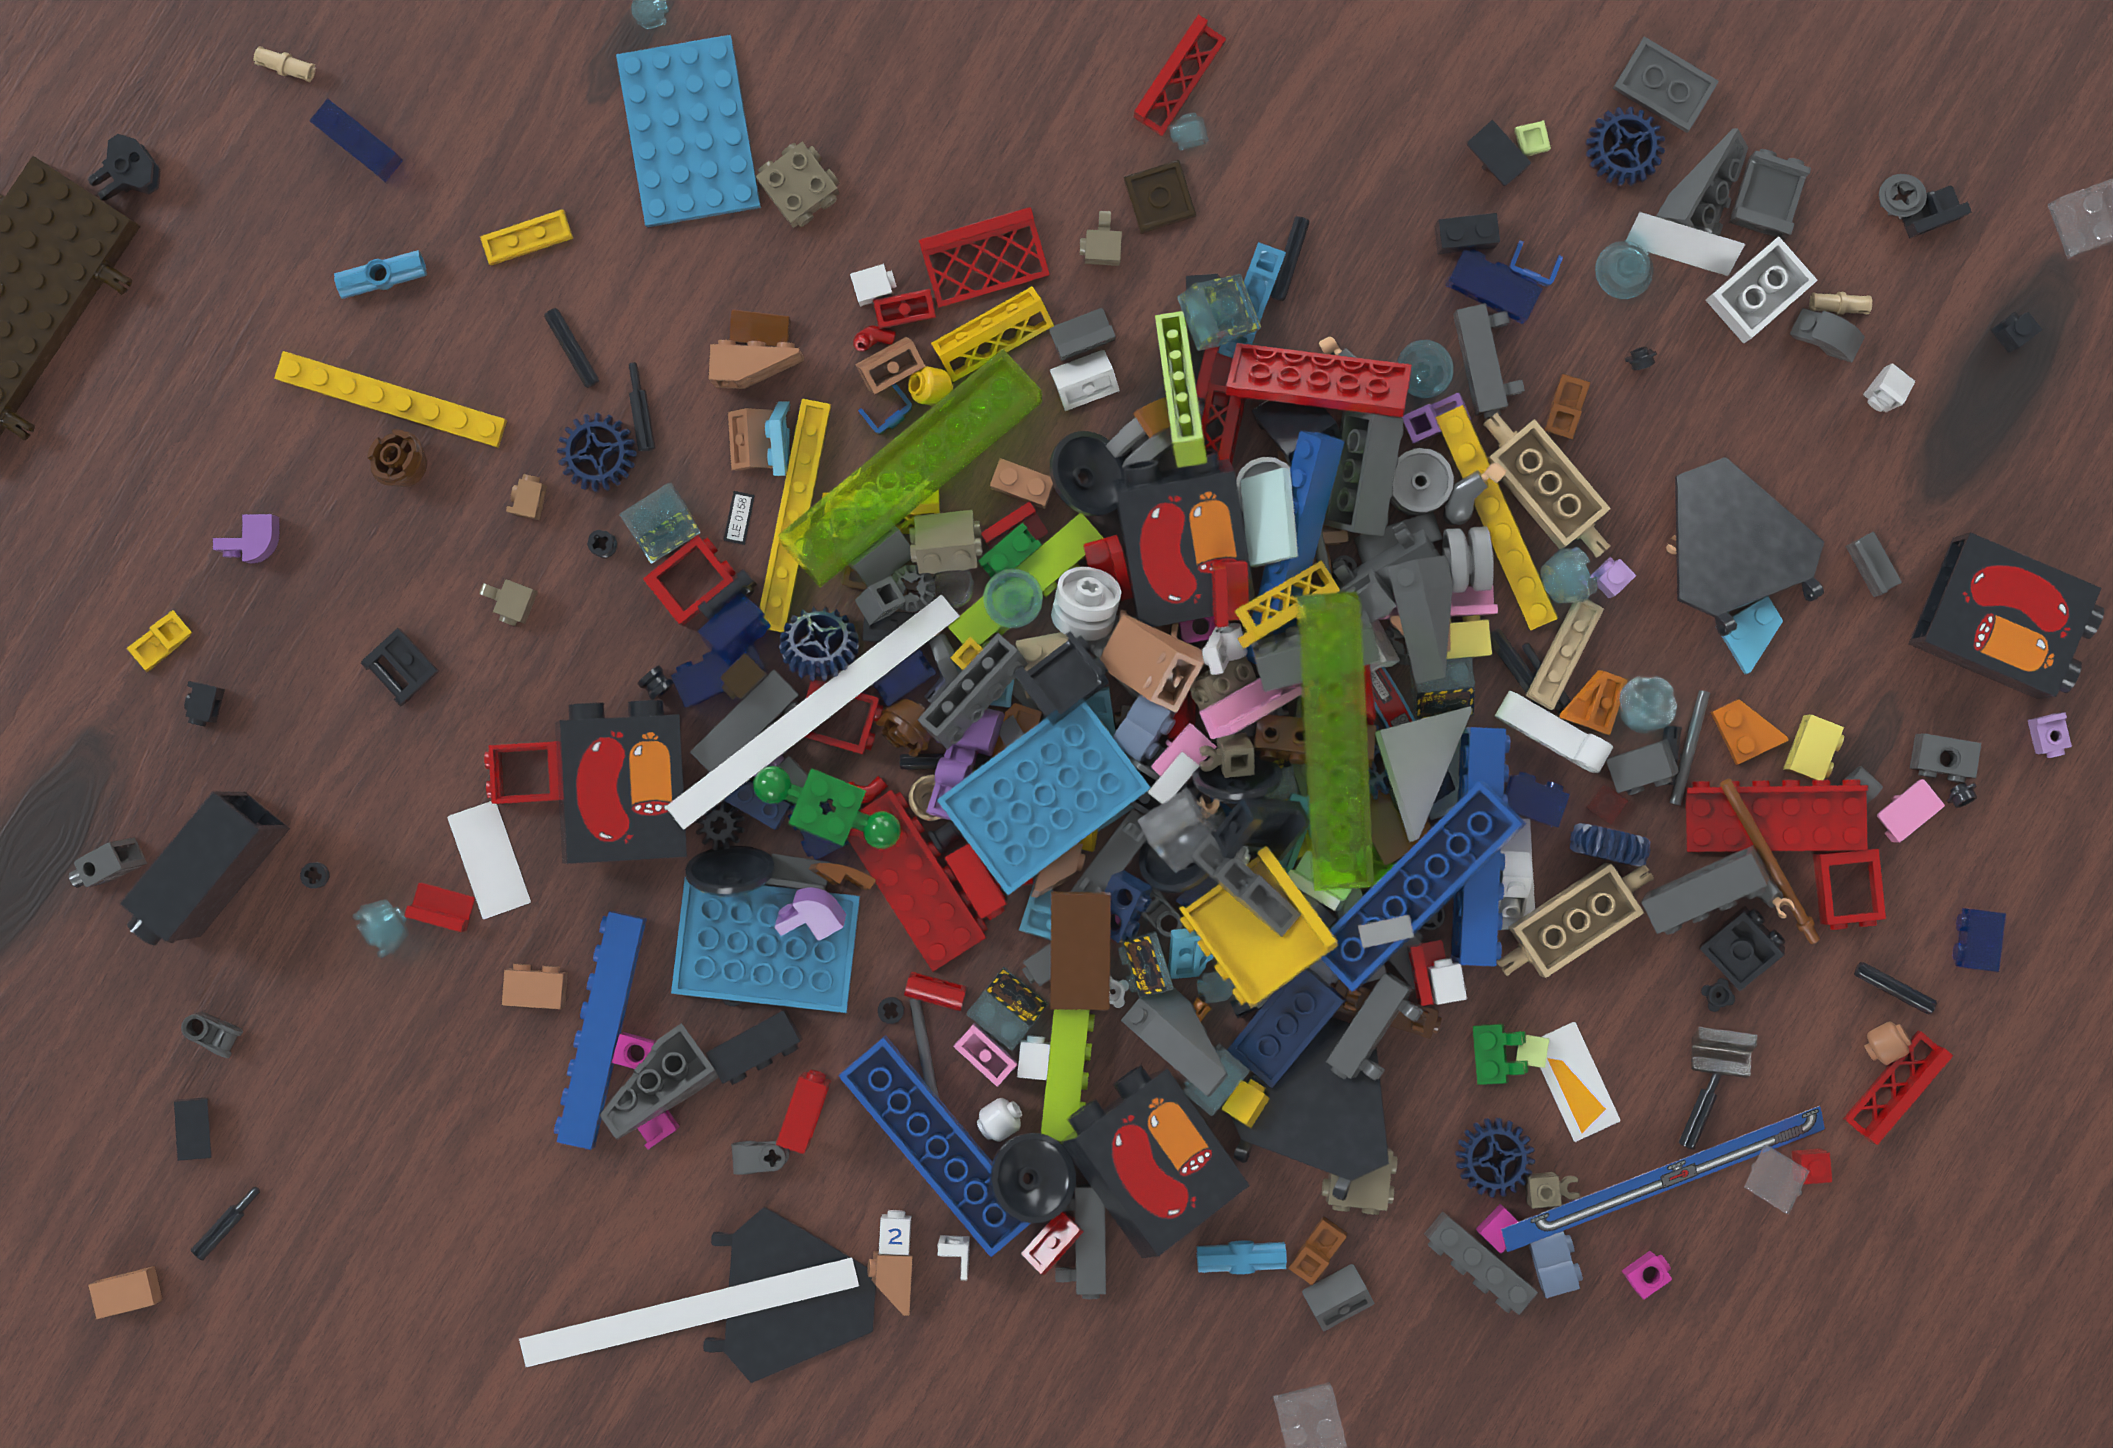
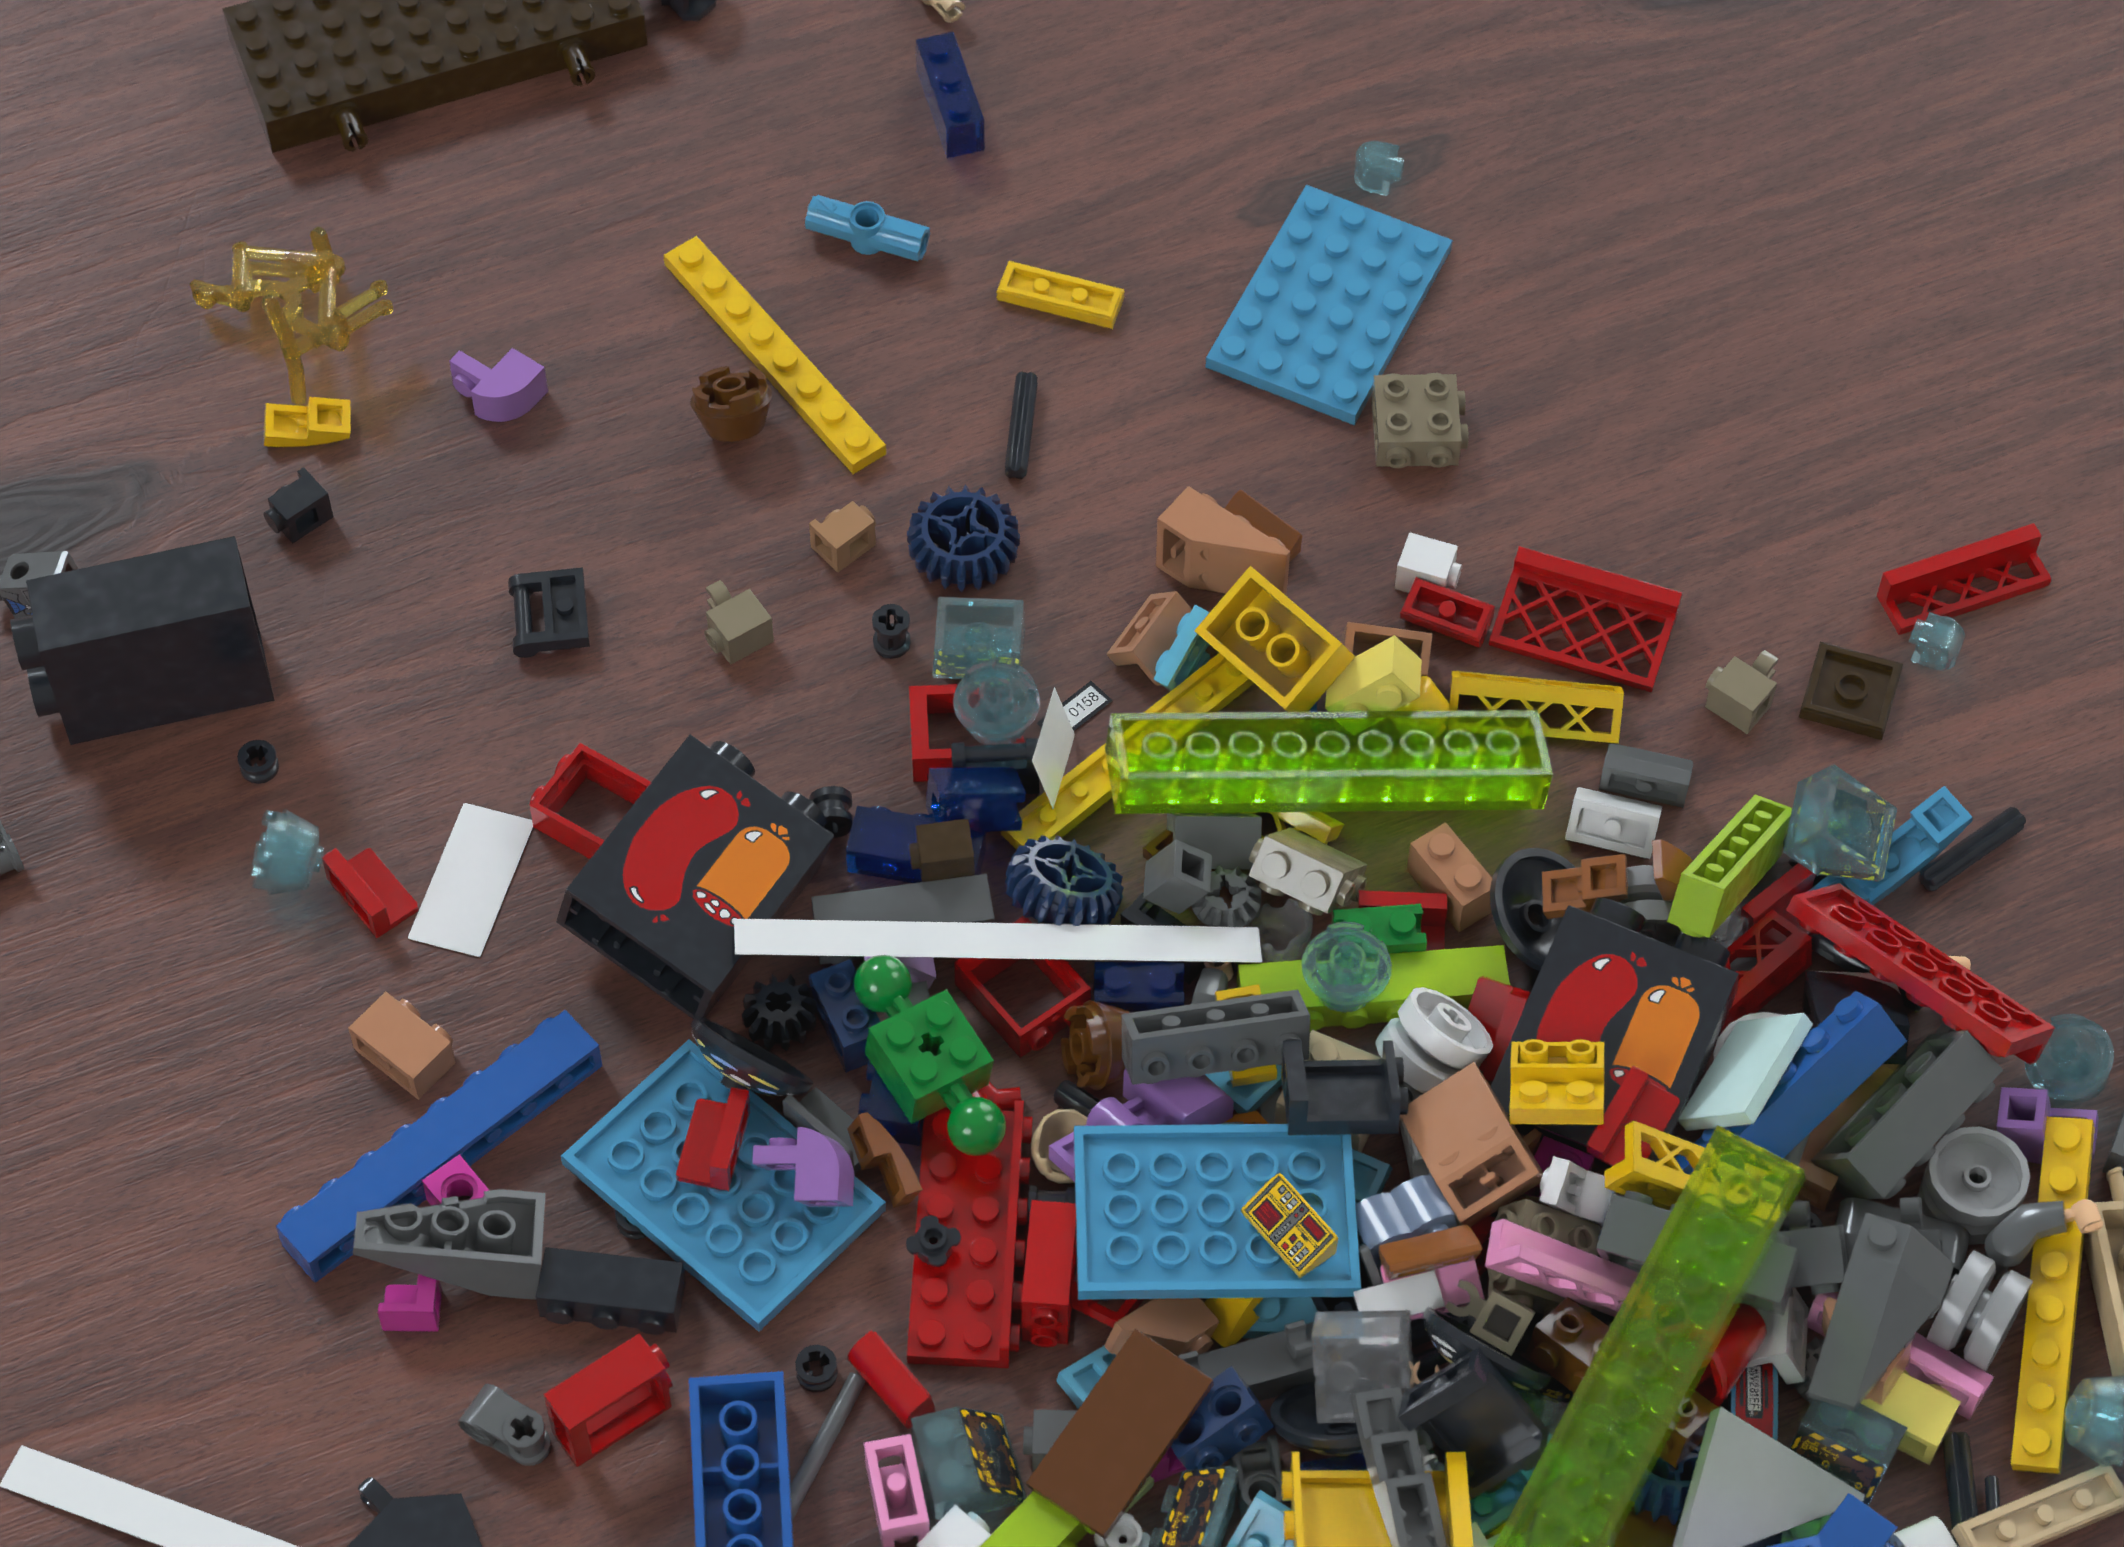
camera: 35 degrees right, 30 degrees down
(86, 541) = (312, 270): none -> clear yellow piece
(640, 412) = (1047, 534): black axle -> none
(706, 566) = (996, 702): none -> clear light blue cone
(745, 929) = (714, 1141): none -> red panel
(752, 563) = (1053, 748): none -> white sticker
(830, 413) = (1274, 643): none -> yellow brick
(872, 335) = (1382, 616): red arm -> none
(897, 898) = (929, 1253): none -> black plate
(902, 398) = (1377, 680): none -> light yellow brick
(1092, 782) = (1290, 1225): none -> slope
(1106, 453) = (1581, 886): none -> dark orange slope
(1175, 747) = (1429, 1252): none -> dark orange slope
(1179, 603) = (1557, 1082): none -> yellow brick

